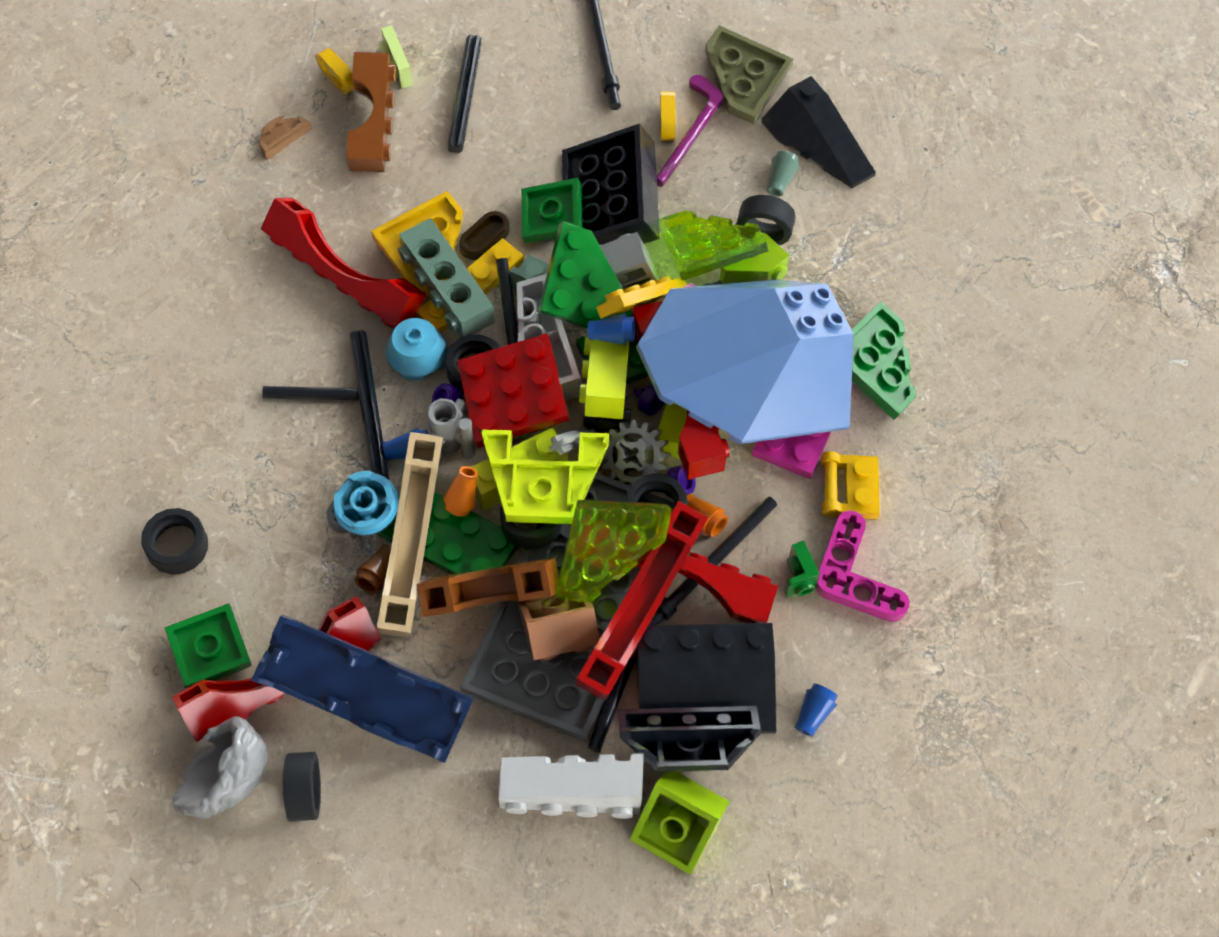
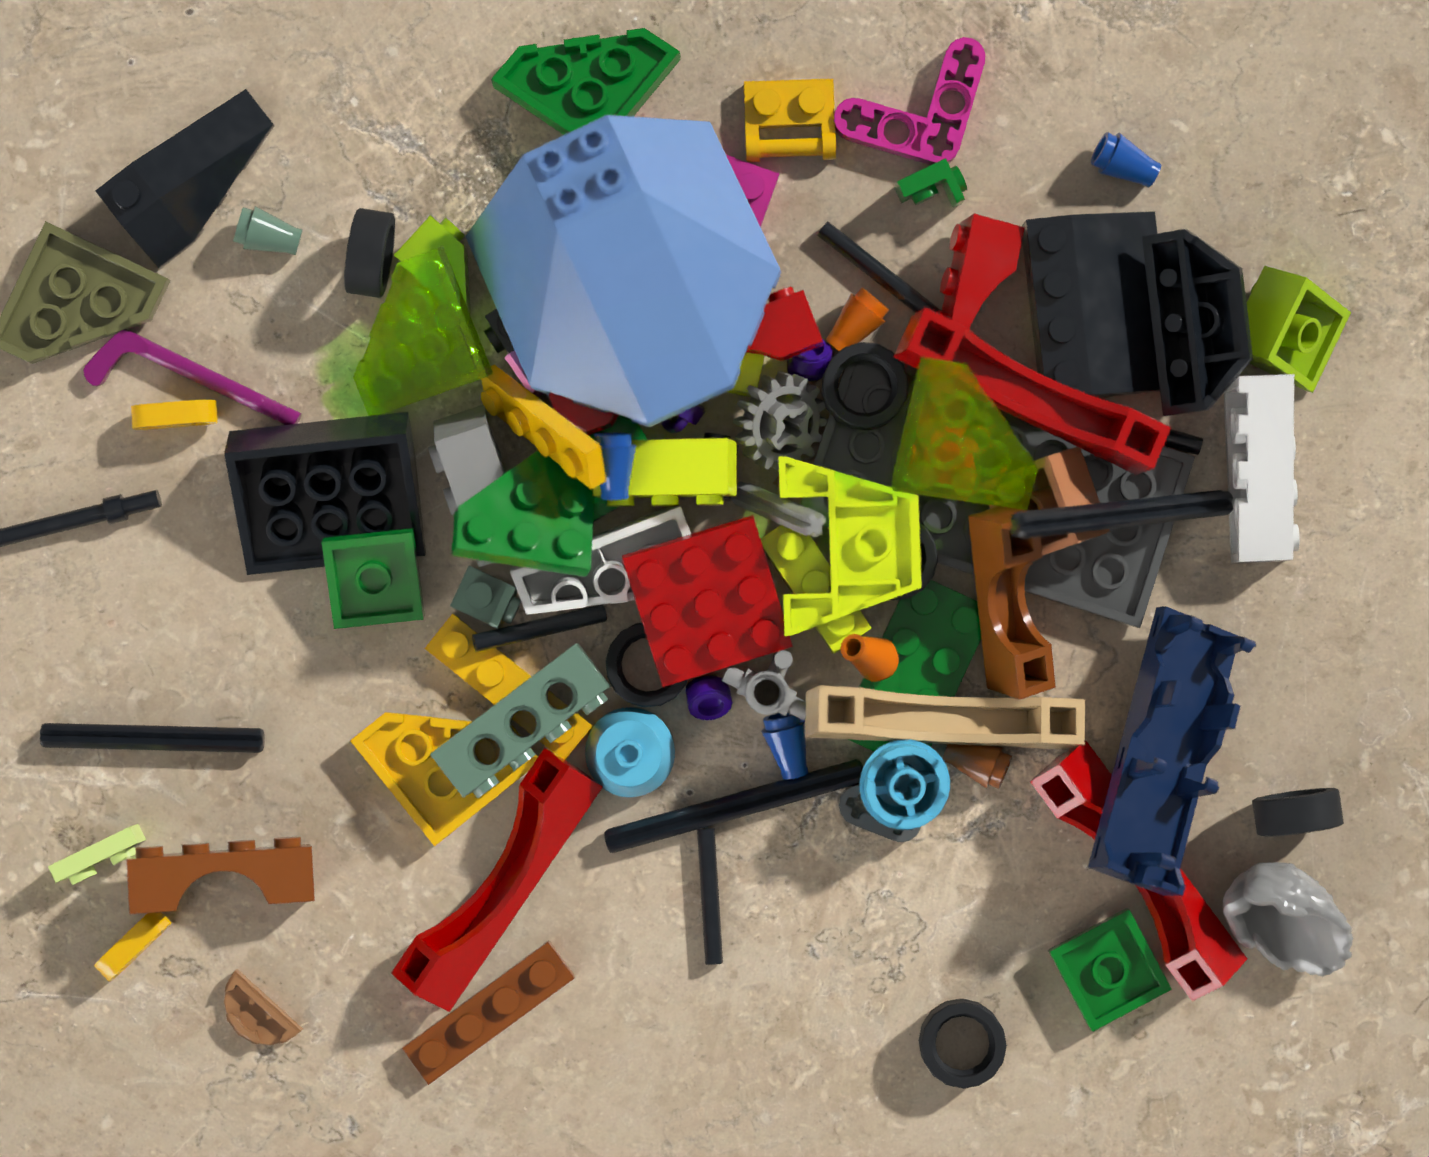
camera: 90 degrees left, 25 degrees up
(257, 259) = (488, 1012): none -> dark orange plate
(484, 234) = (416, 676): dark brown tile -> none
(545, 659) = (1120, 514): none -> black axle

